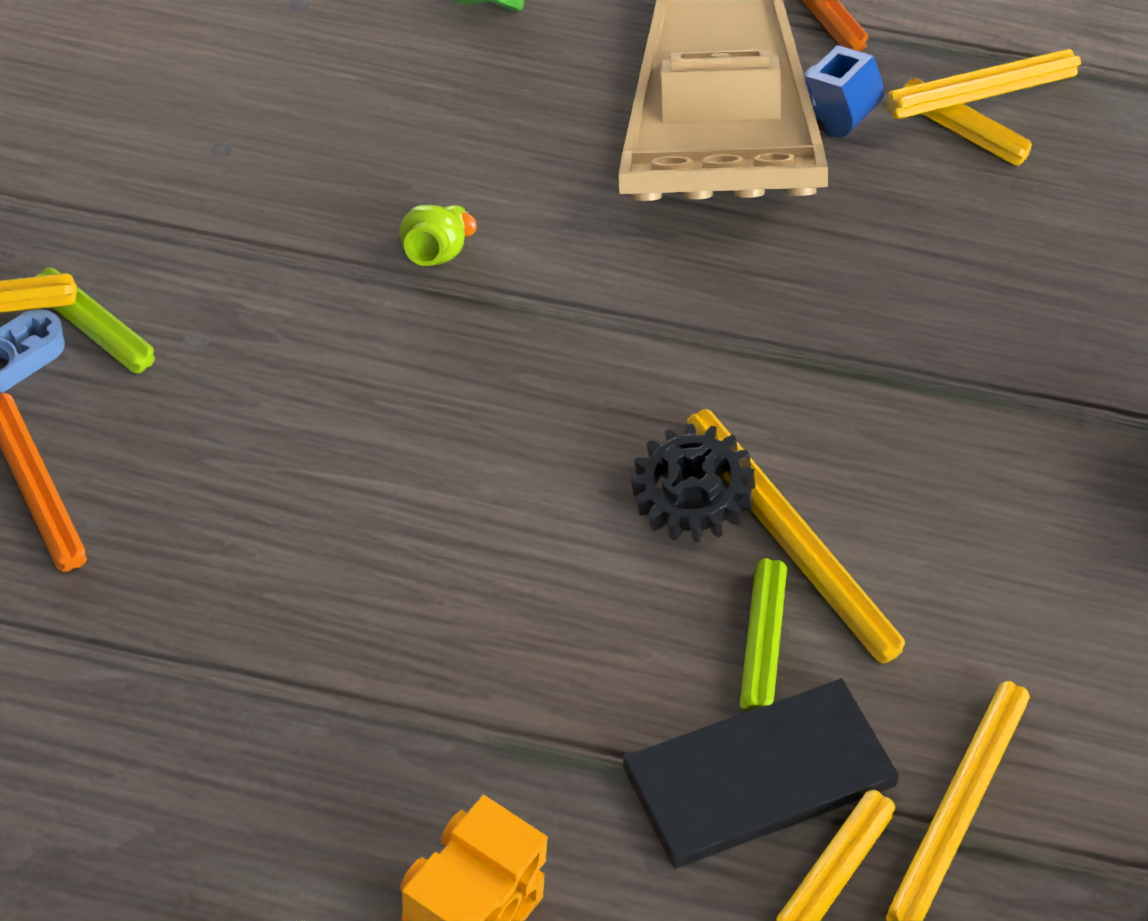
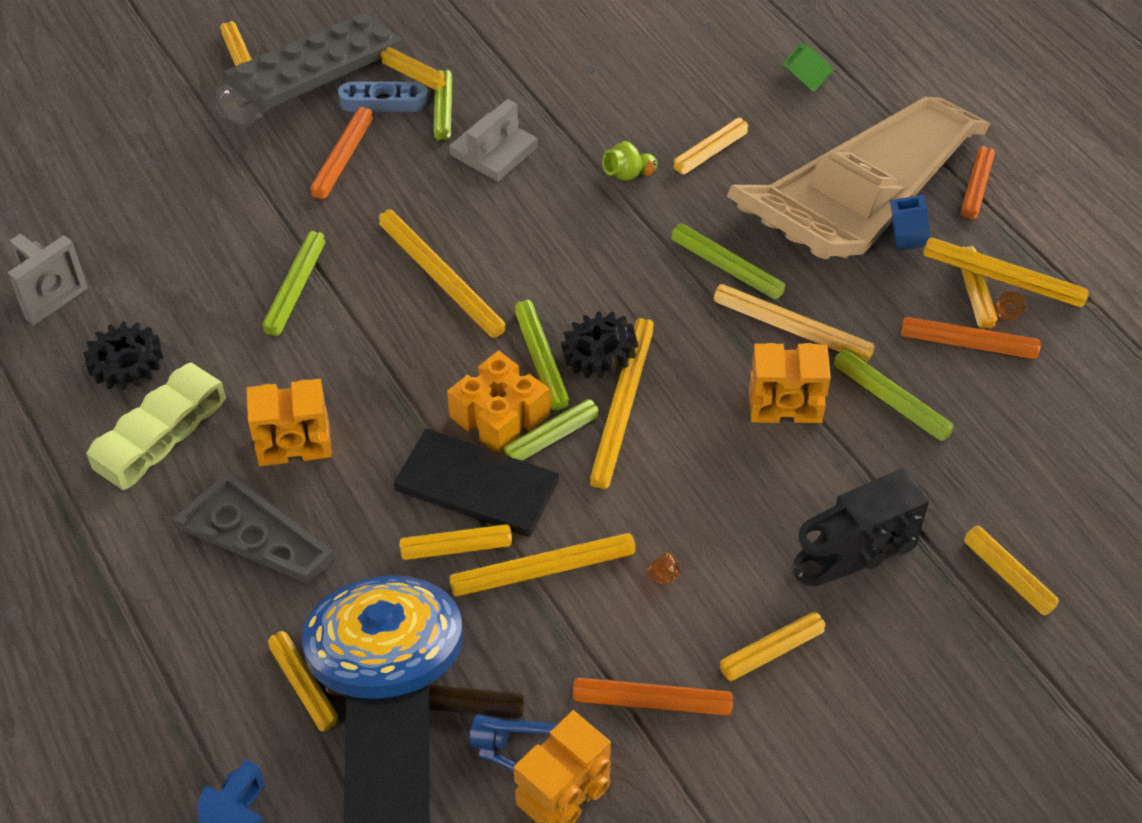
camera: 50 degrees right, 0 degrees up
(200, 709) = (293, 284): none -> lime axle
(230, 325) = (495, 143): none -> light grey bracket
(376, 542) = (442, 274): none -> yellow axle
(496, 150) = (710, 146): none -> yellow axle
(632, 550) = (541, 354): none -> lime axle
(675, 649) = (498, 402): none -> light orange brick
(688, 276) = (728, 261): none -> lime axle
(843, 297) = (792, 322): none -> yellow axle
(956, 364) = (789, 383): none -> light orange brick
(1026, 183) = (970, 338): none -> orange axle
(1035, 117) = (1006, 300): none -> clear orange hinge
(1038, 302) = (893, 395): none -> lime axle
(1082, 689) = (664, 568): none -> clear orange hinge

